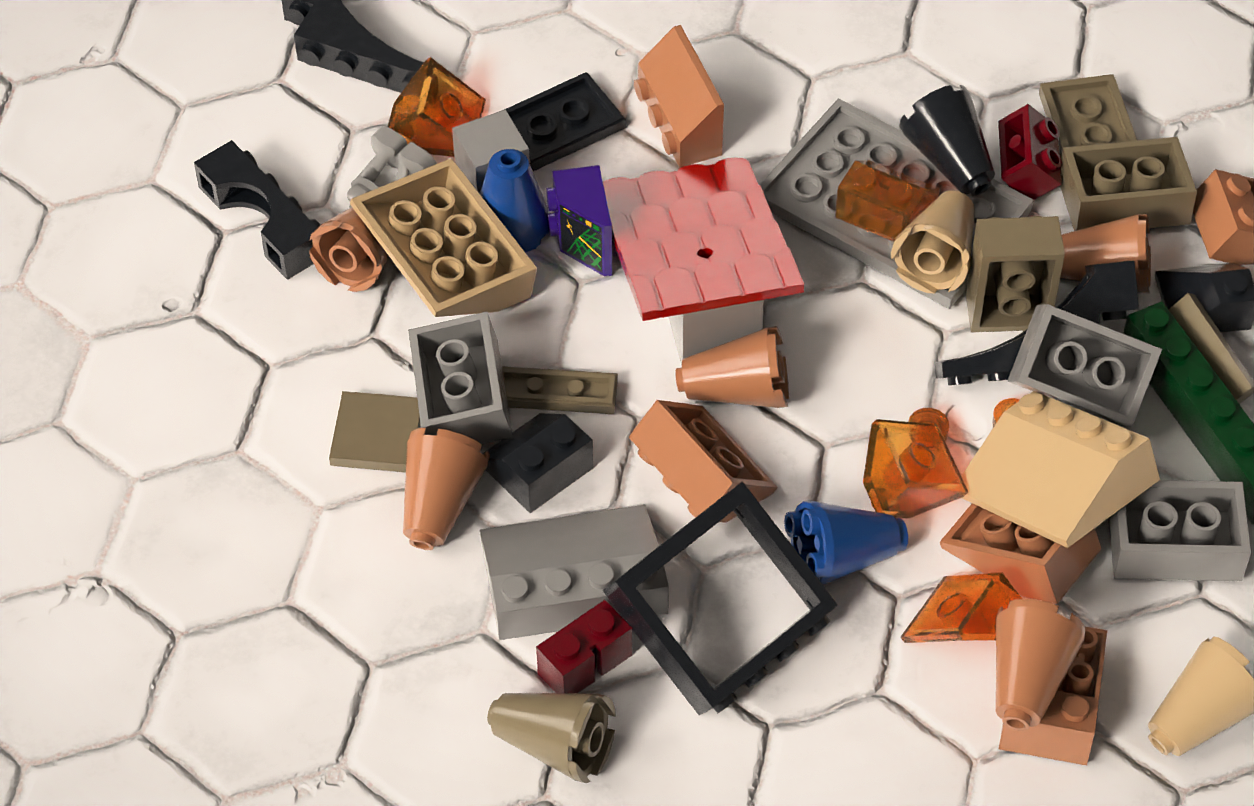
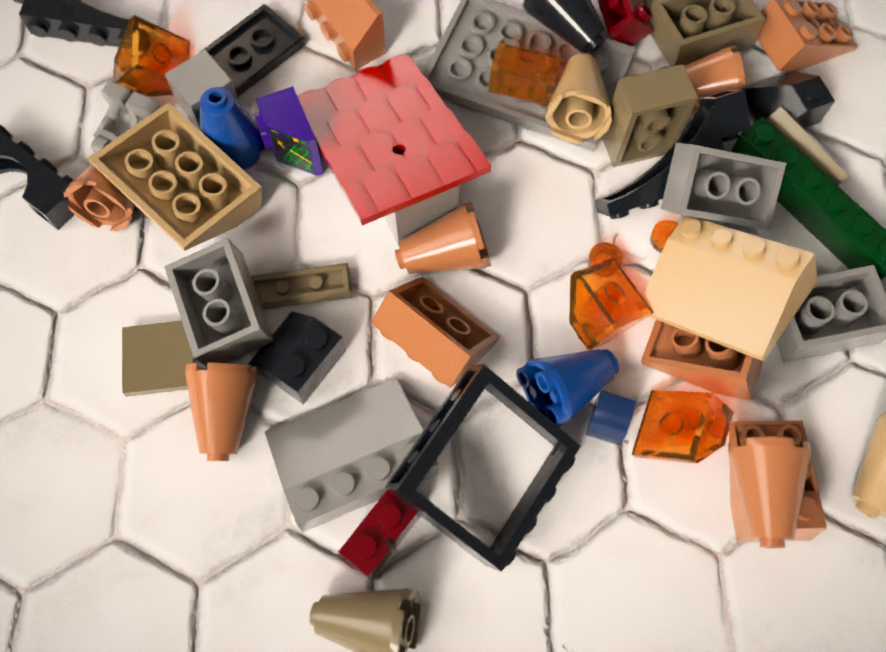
camera: 15 degrees left, 15 degrees up
(883, 589) = (610, 417): none -> dark blue brick

